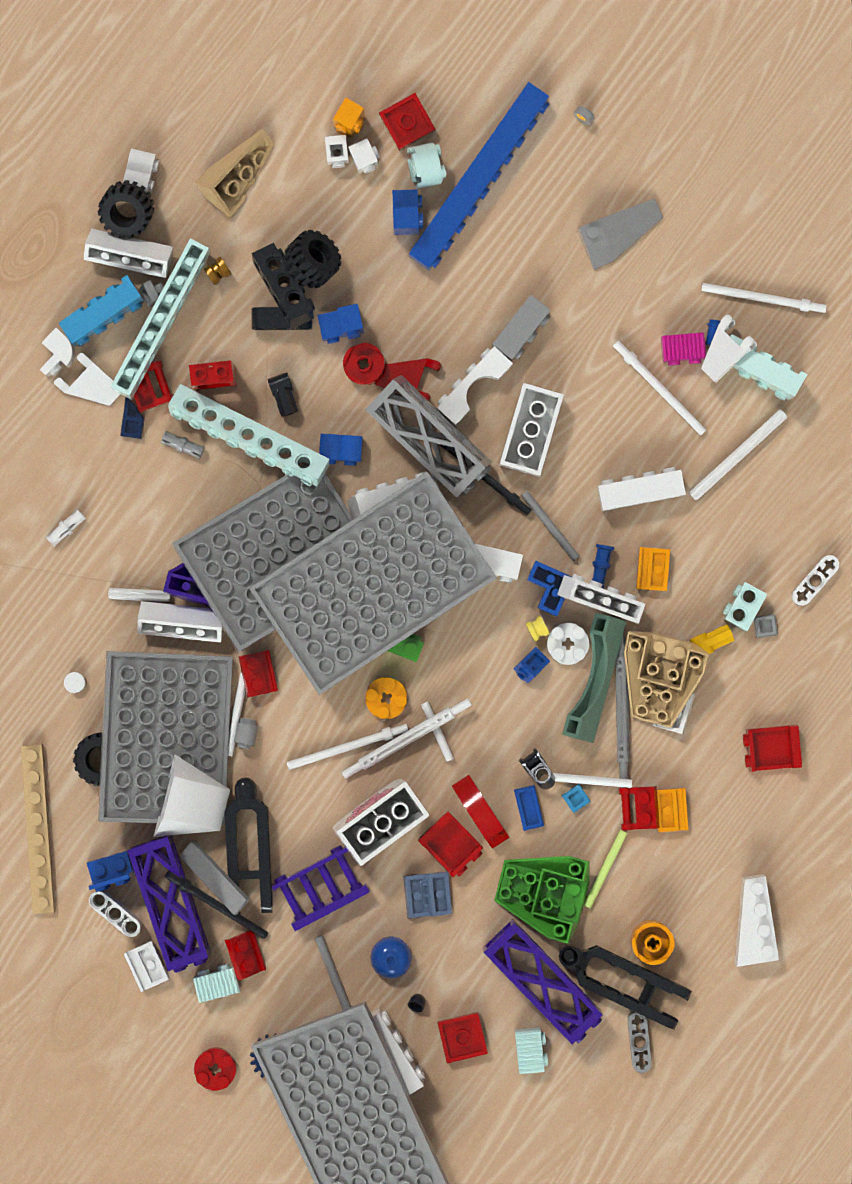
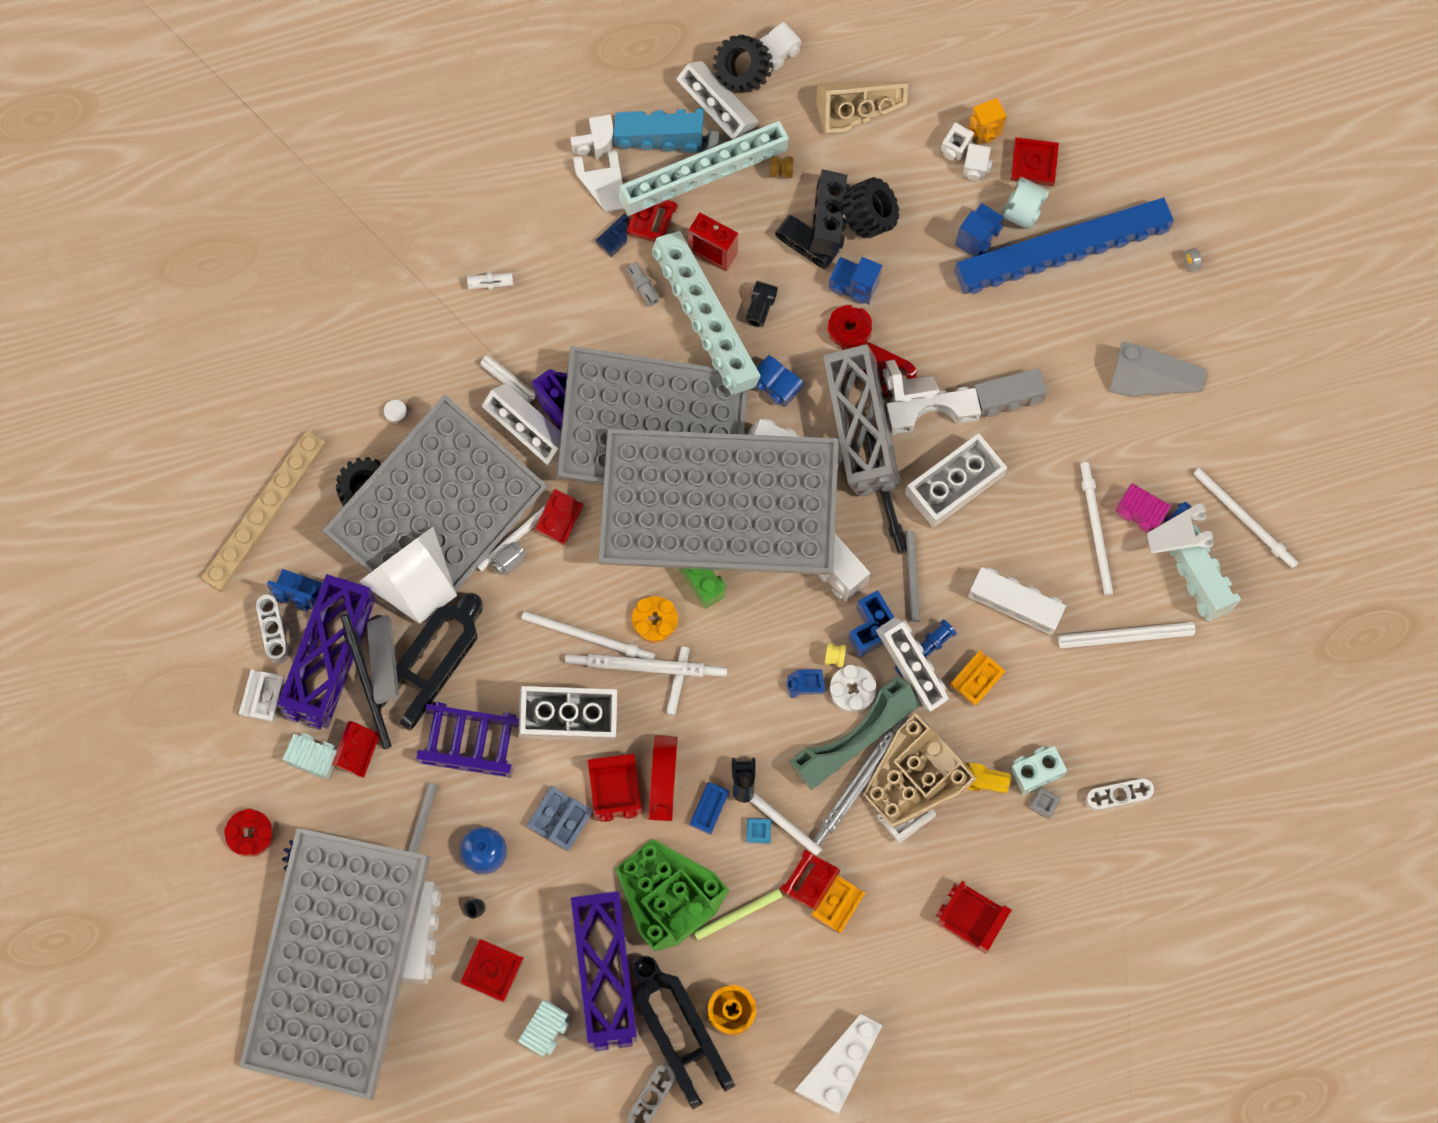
camera: 30 degrees right, 15 degrees down
(445, 381) = (911, 388): none -> white bracket

